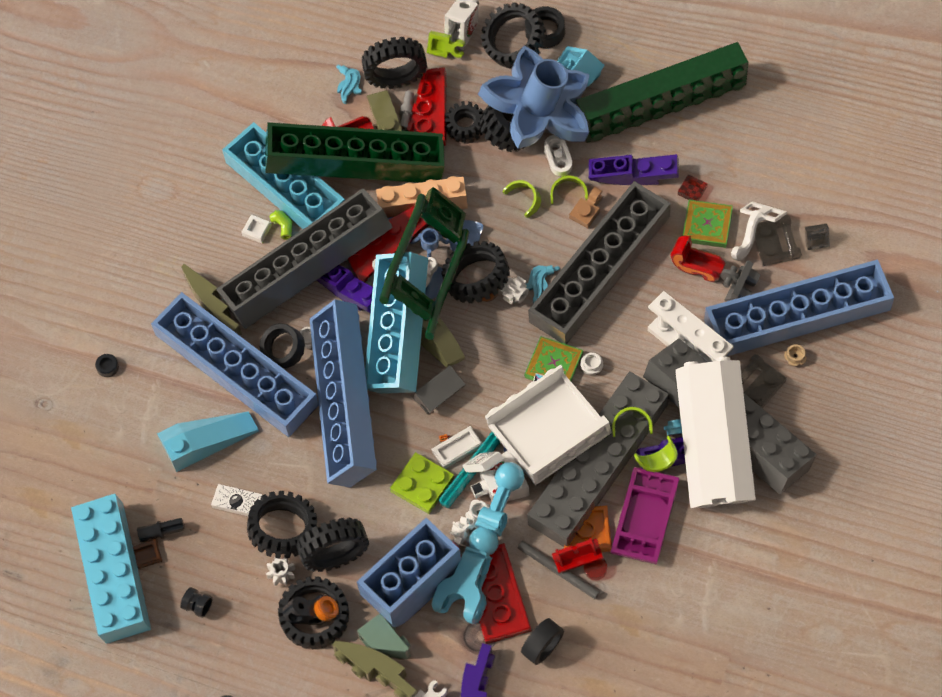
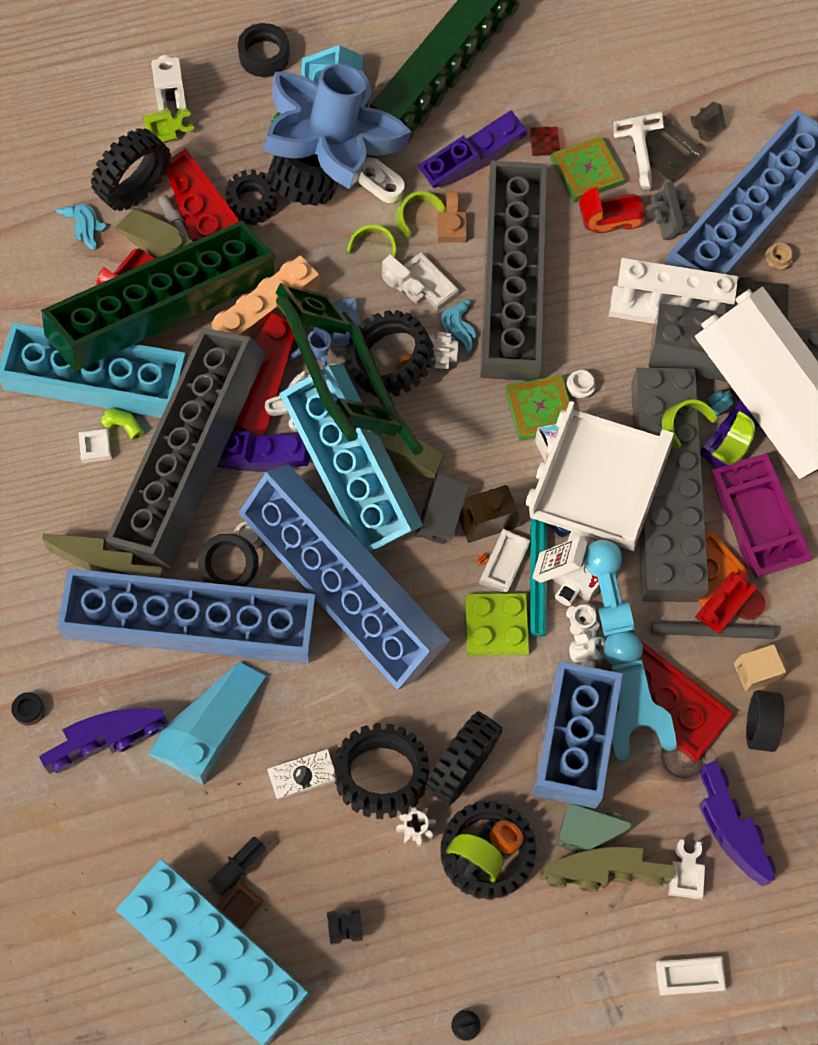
camera: 45 degrees left, 5 degrees up
(144, 405) = (115, 728): none -> dark purple slope
(300, 608) = (479, 852): none -> lime helmet
(467, 410) = (490, 513): none -> dark brown torso
(499, 19) = (214, 56): black tyre -> none
(520, 224) = (399, 277): none -> white plate
(543, 240) = (438, 287): none -> white tile
(567, 608) = (760, 667): none -> tan brick

